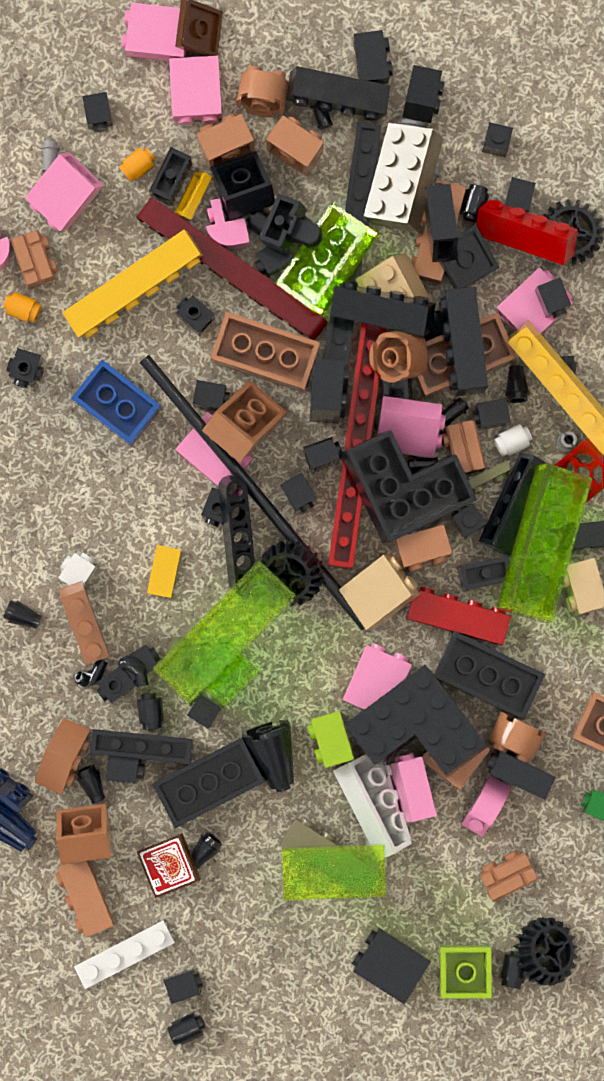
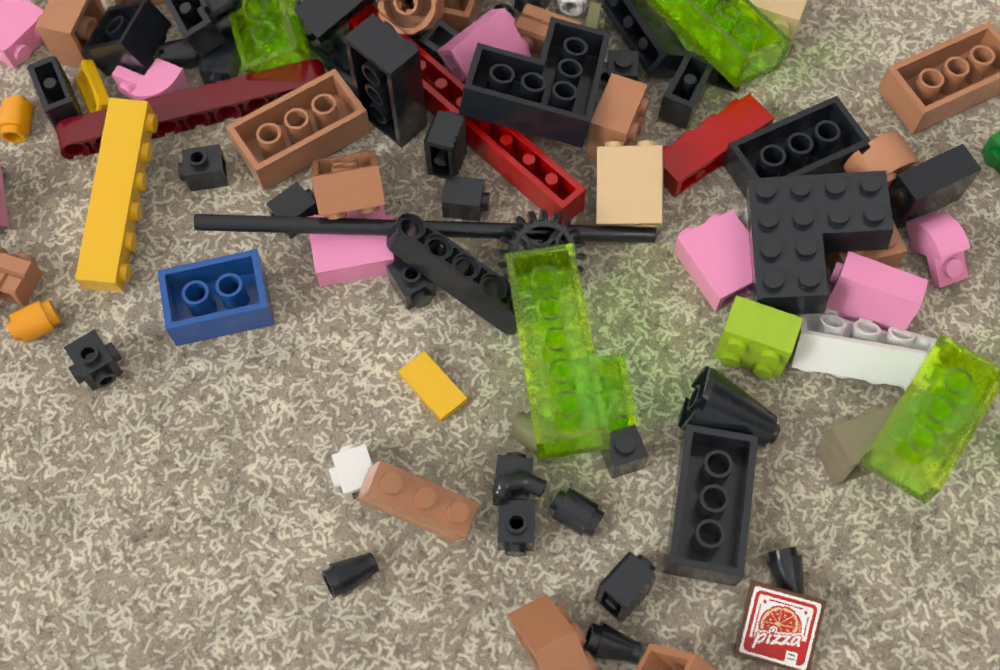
camera: 50 degrees left, 20 degrees down
(91, 677) = (485, 548): black arm -> none
(141, 746) = (622, 533): black brick -> none

